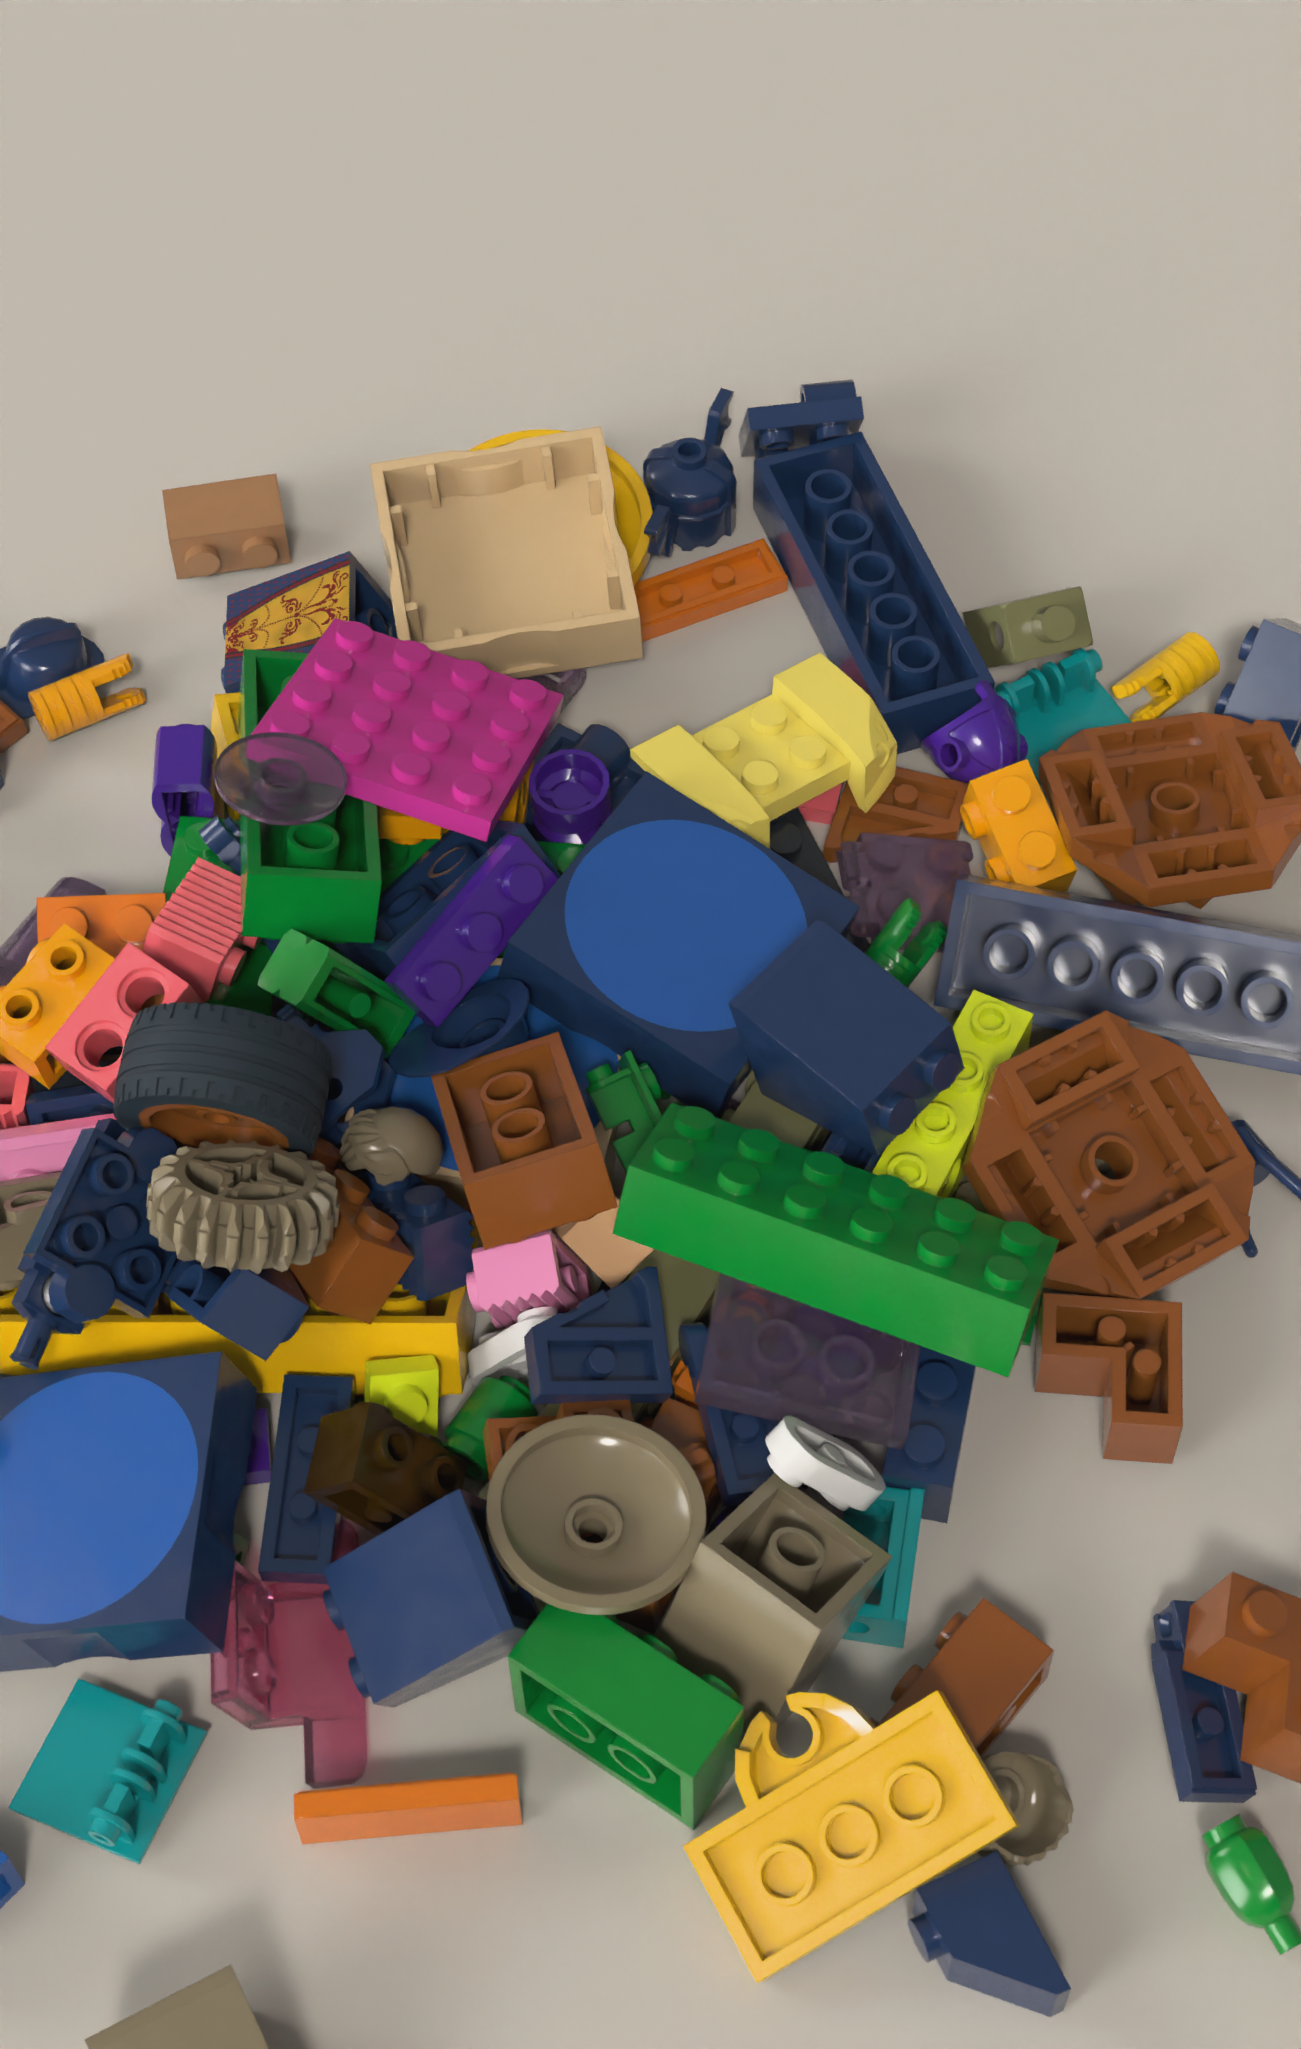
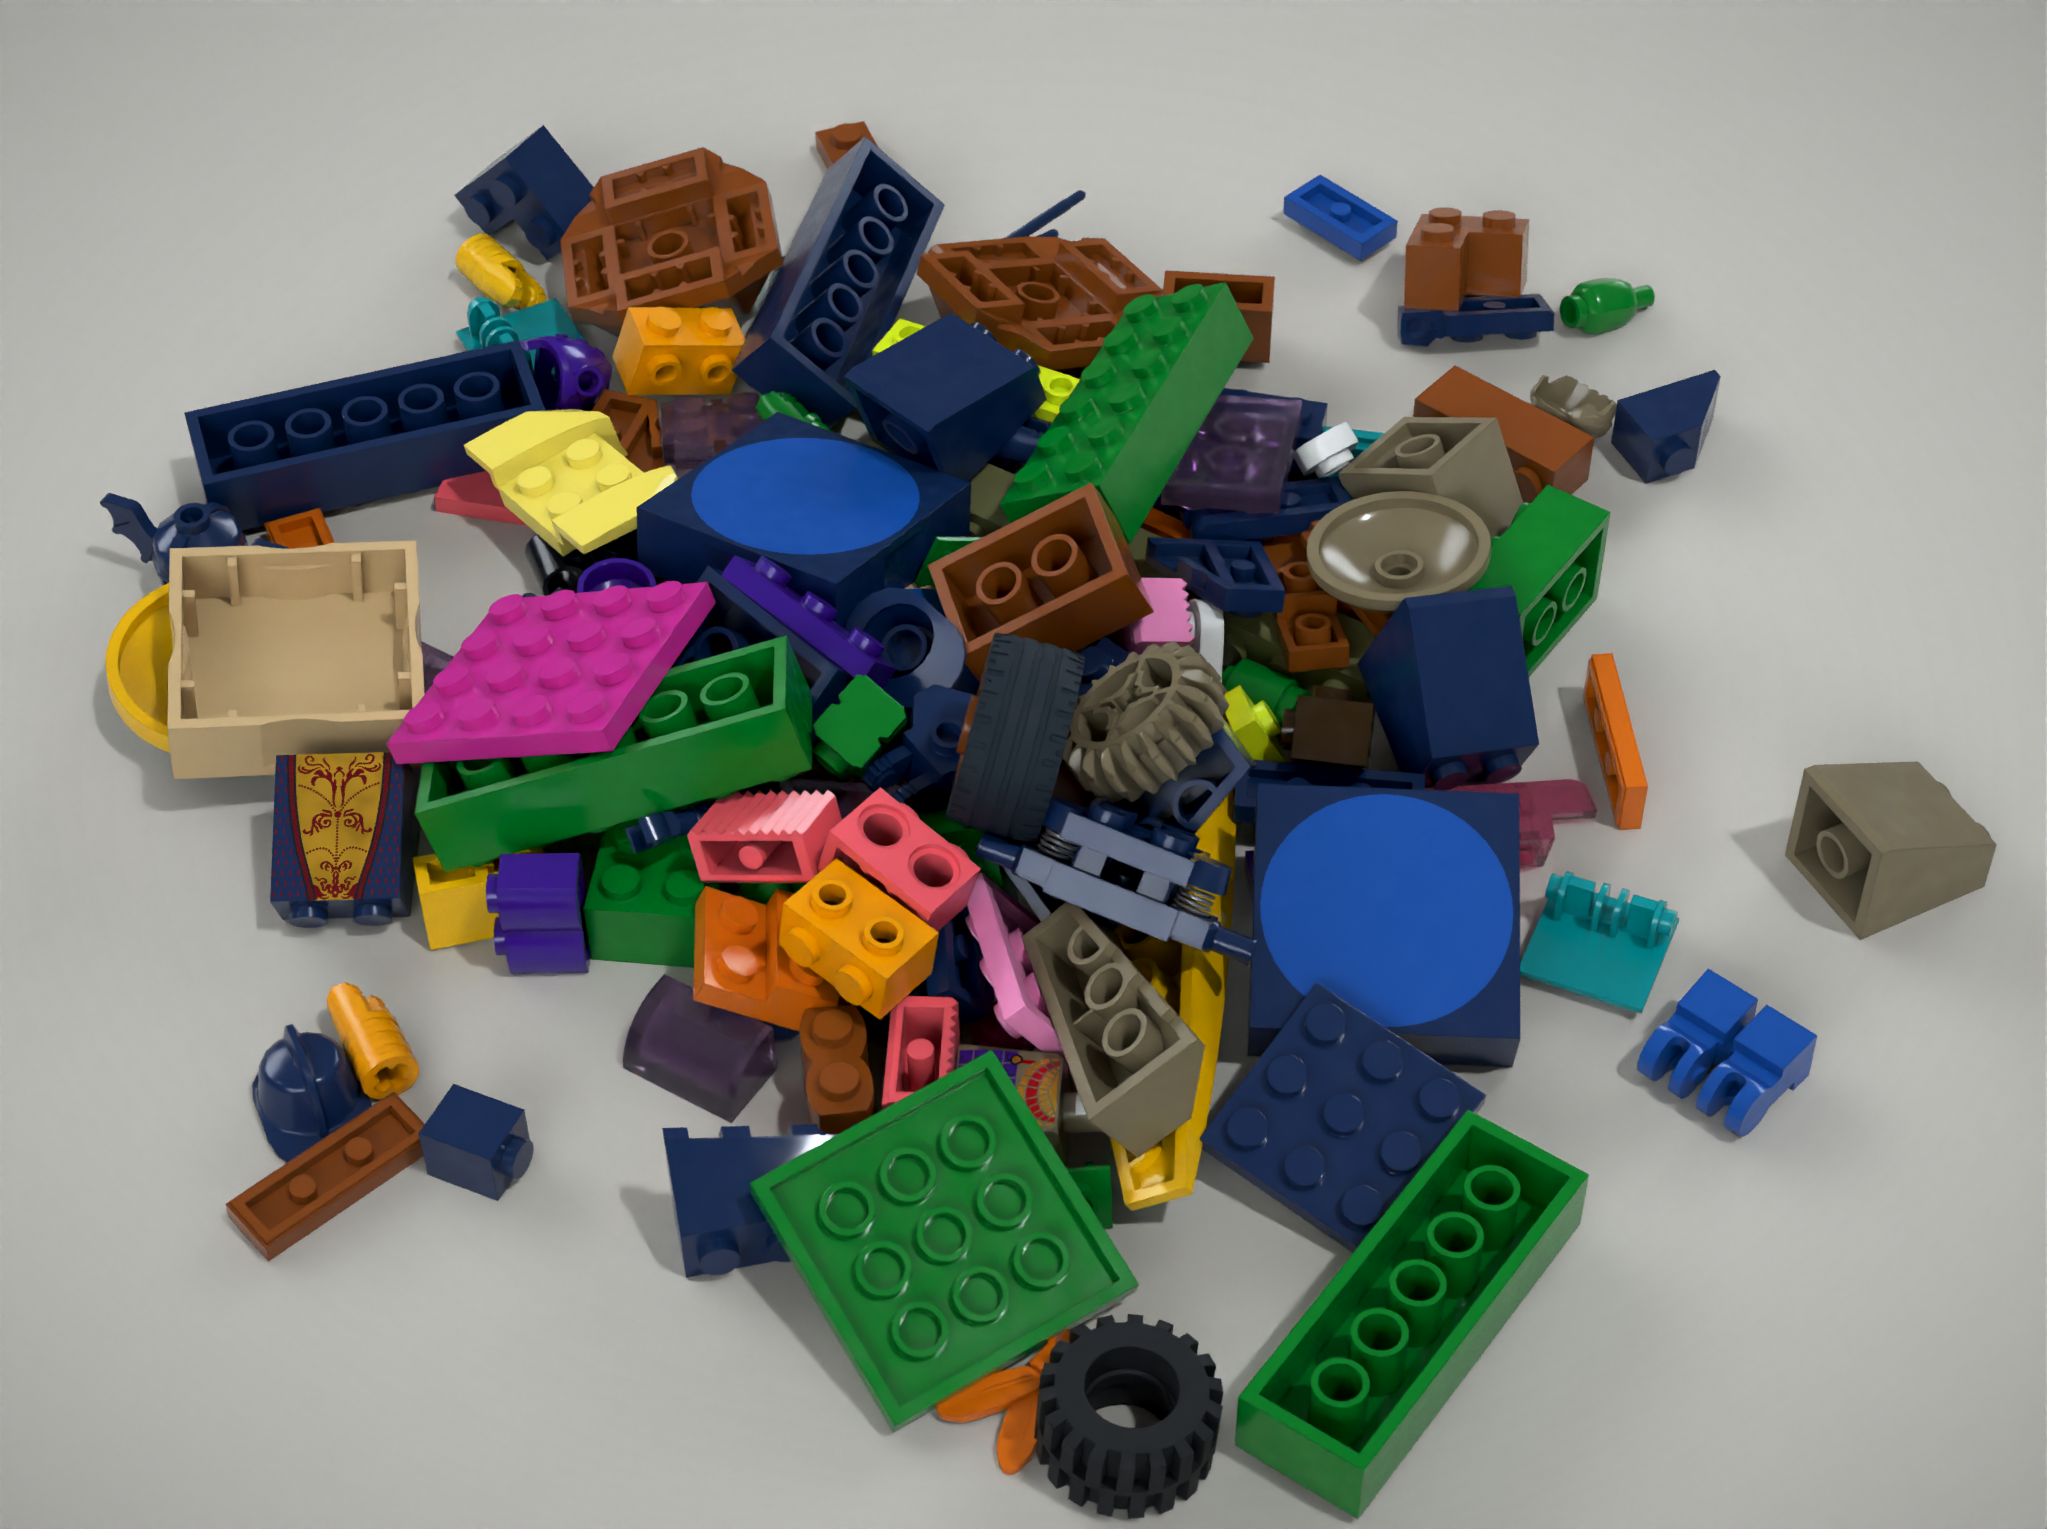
camera: 90 degrees left, 10 degrees down
(226, 526) = (159, 918): medium nougat brick -> none
(280, 778) = (668, 691): dish -> none
(823, 414) = (144, 455): dark blue plate -> none
(843, 1824) = (1608, 452): yellow plate -> none
(1031, 627) = (442, 316): olive torso -> none

